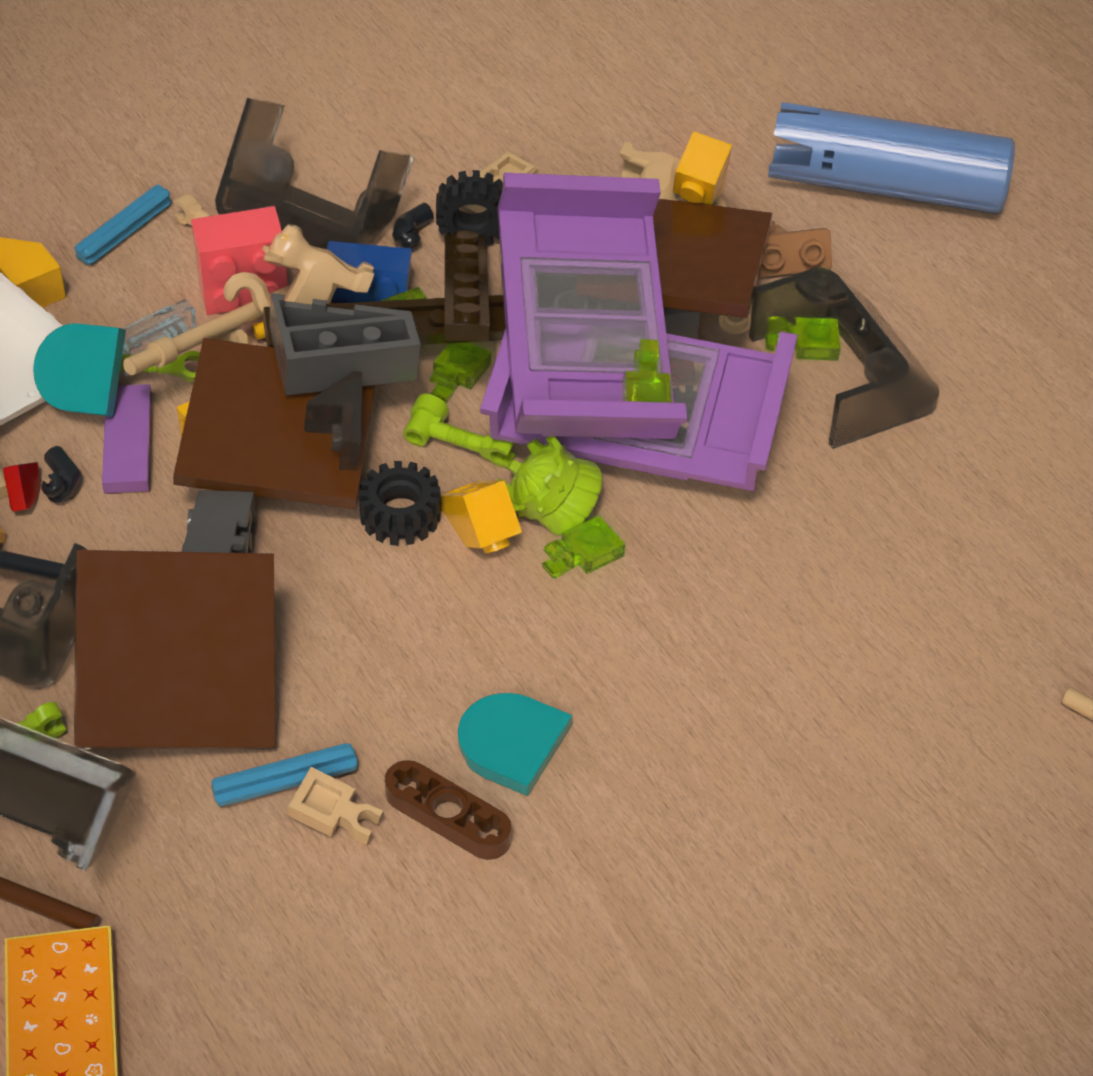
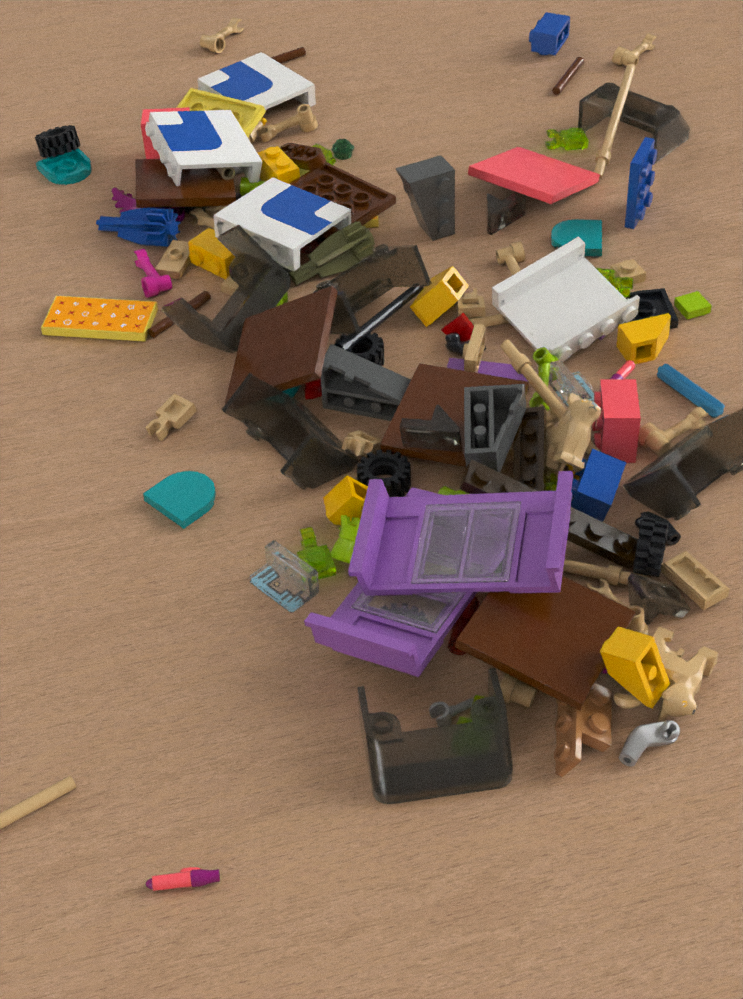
camera: 110 degrees right, 5 degrees down
(80, 368) = (534, 342): teal tile -> none
(109, 296) = (624, 371): none -> coral piece
(110, 434) = (474, 349): none -> tan plate
(282, 774) = (204, 406): dark azure axle -> none
(340, 535) = (361, 443): none -> tan plate
(368, 599) = (293, 430): none -> clear smoke windscreen
(457, 828) = (132, 472): reddish brown beam -> none
(638, 567) = (286, 578): none -> clear panel
(645, 382) = (391, 565): clear neon green plate -> none
(750, 198) = (648, 736): none -> light grey arm
(801, 365) = (447, 712): none -> light grey hand
(893, 158) = (658, 841): medium blue piece -> none

